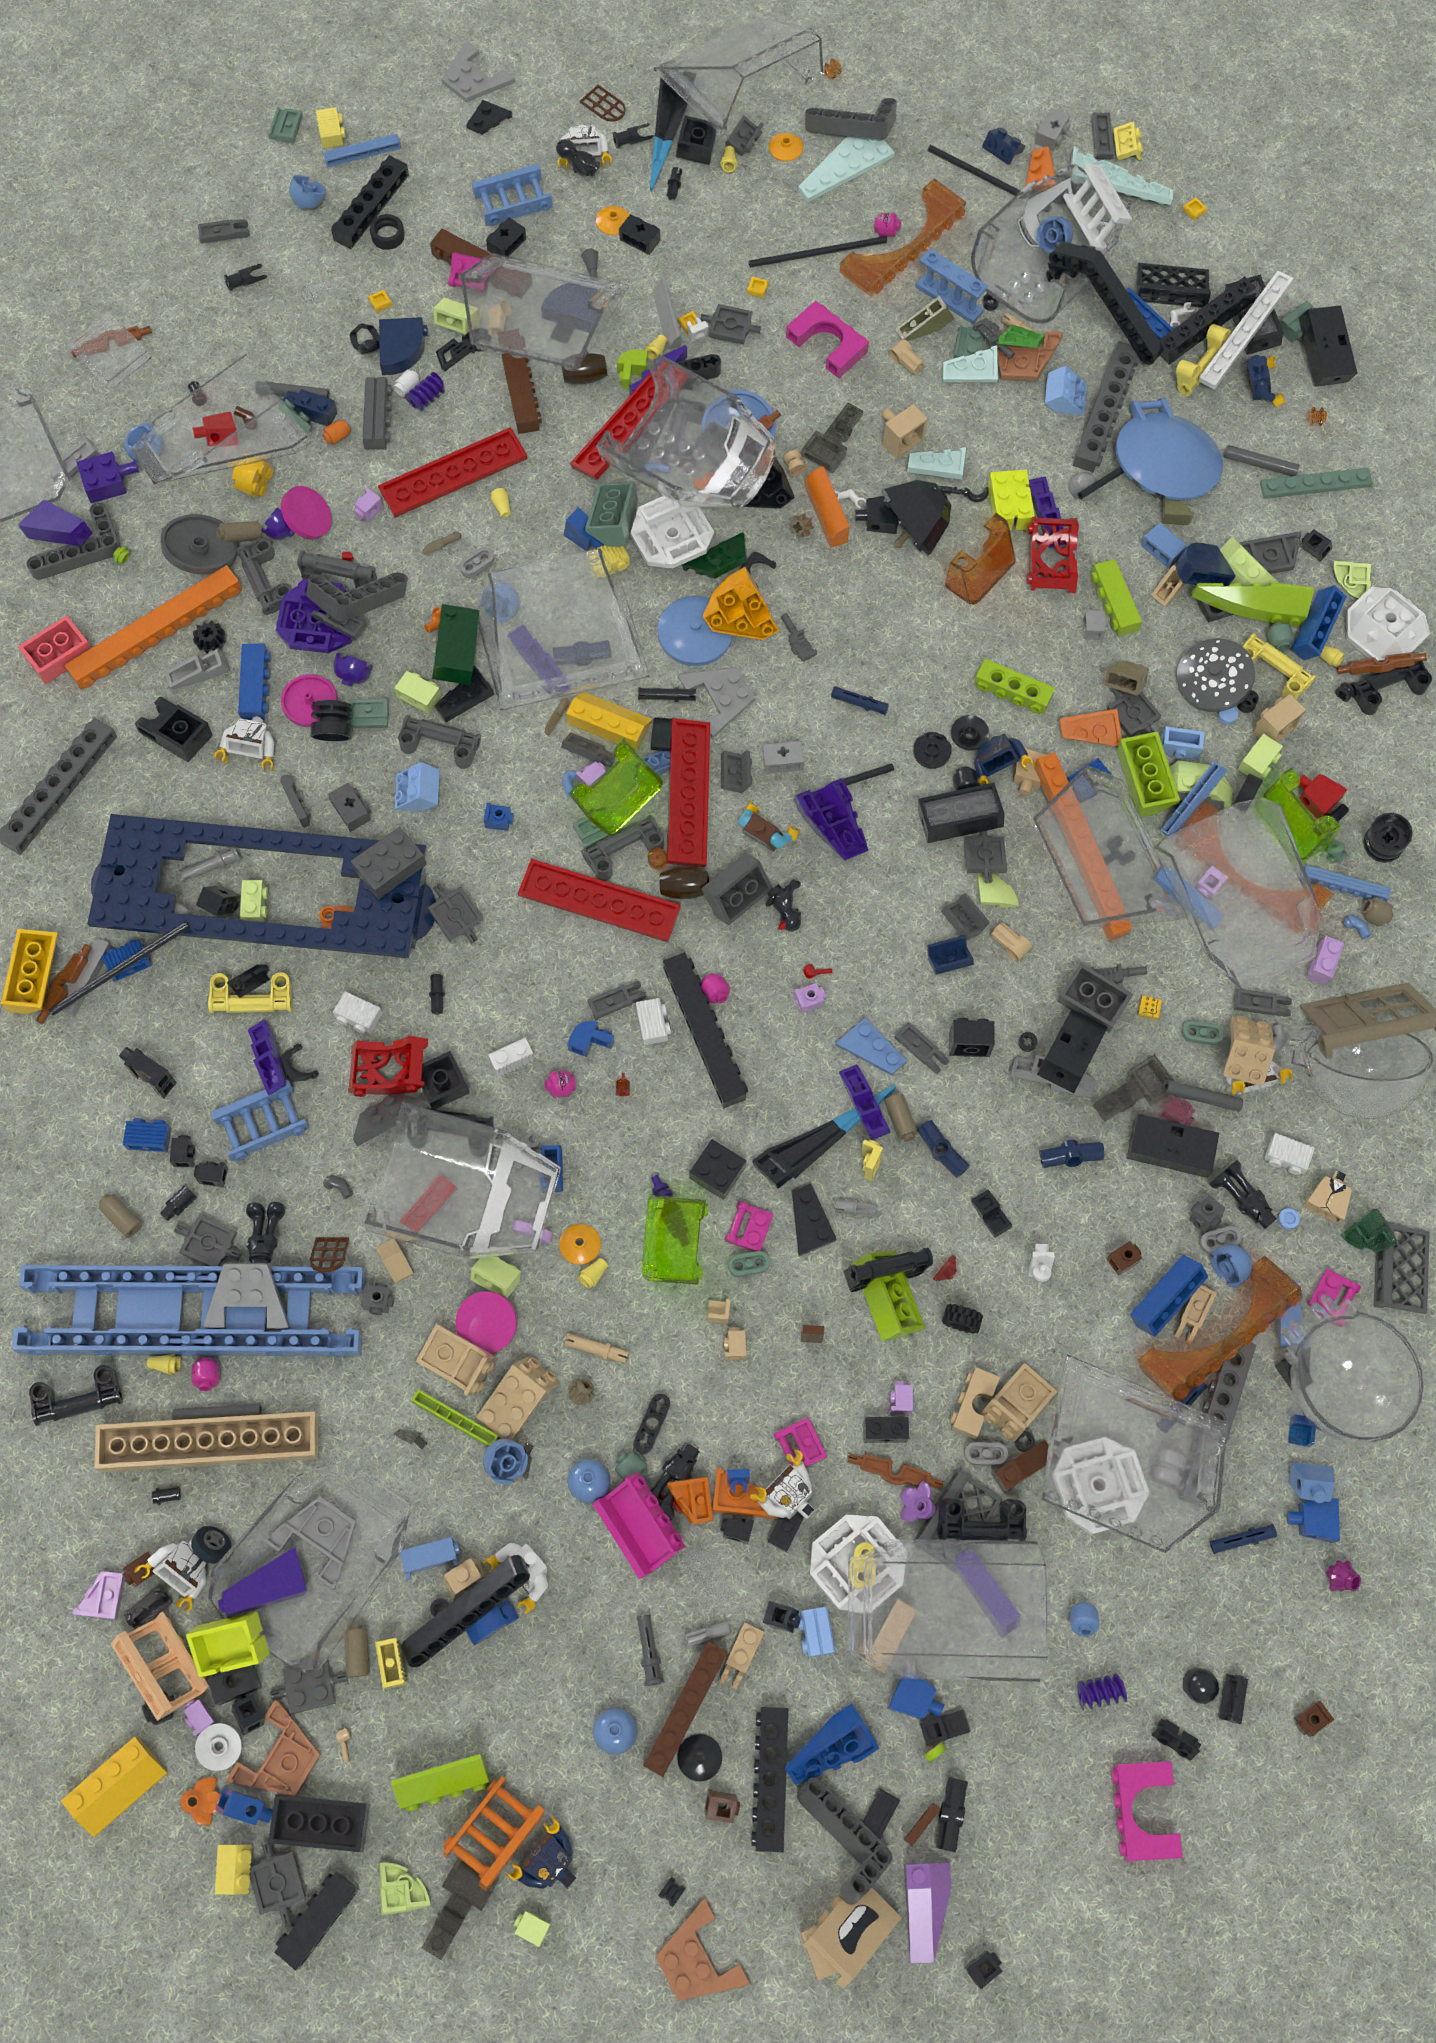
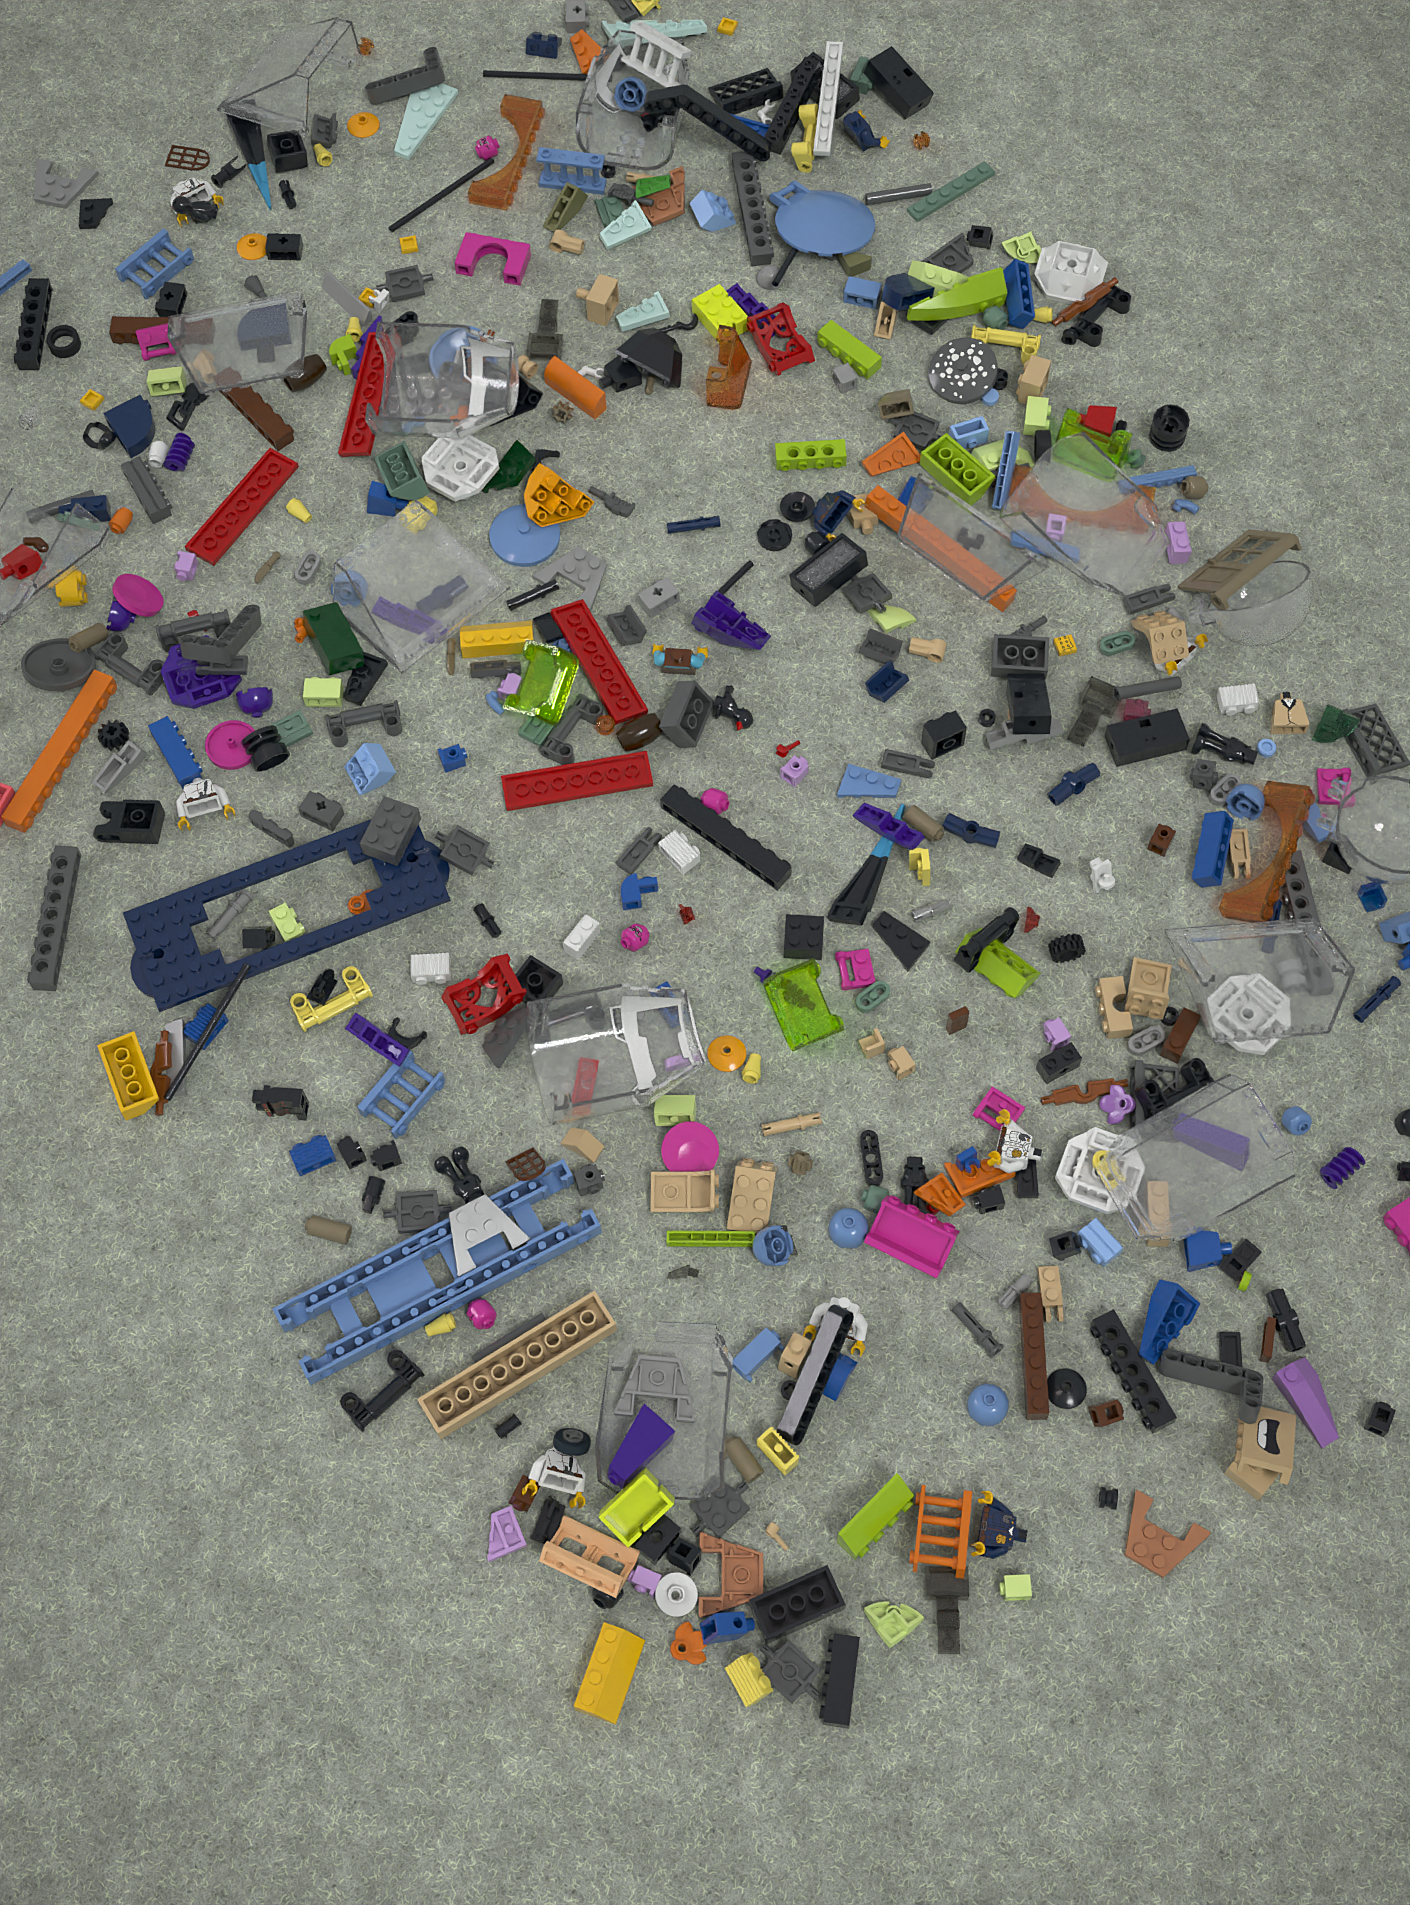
camera: 25 degrees left, 5 degrees down
(339, 1183) = (499, 1108): dark grey arm -> none

